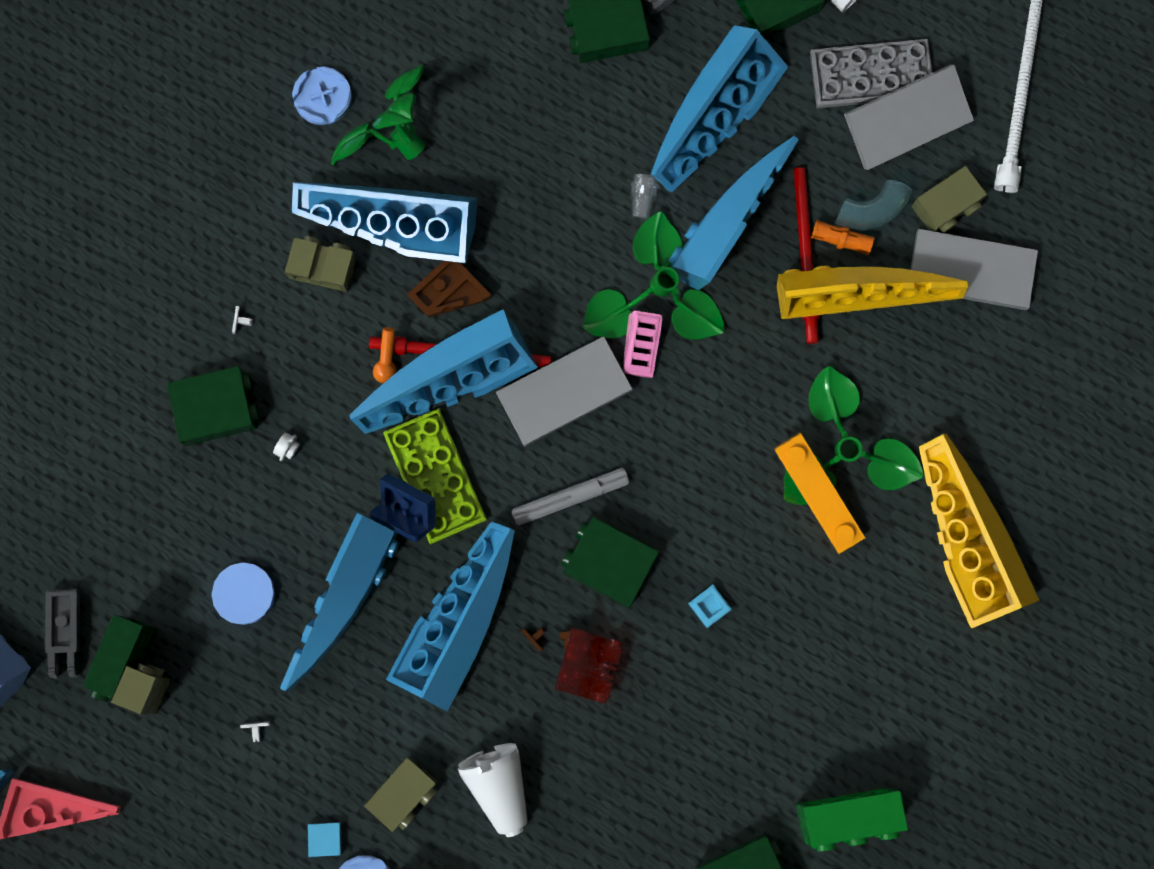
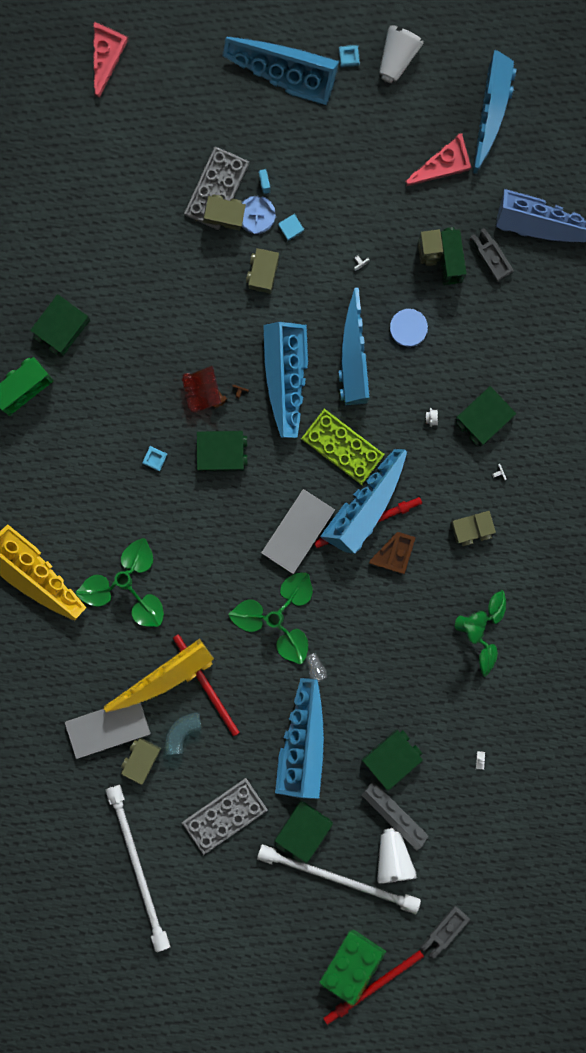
camera: 150 degrees right, 5 degrees up
(322, 95) = (531, 626): light blue tile -> none
(385, 367) = (403, 489): orange bar -> none
(399, 219) = (443, 578): dark azure wedge -> none
(405, 509) = (347, 417): dark blue bracket -> none
(498, 787) = (215, 301): white cone -> none
(570, 496) = (262, 476): light grey axle -> none
(631, 342) = (281, 592): bright pink slope -> none
(725, 221) = (261, 669): dark azure wedge -> none
(819, 493) = (127, 551): light orange plate -> none
(842, 237) = (190, 706): orange pin -> none
(909, 117) = (189, 798): light grey tile -> none

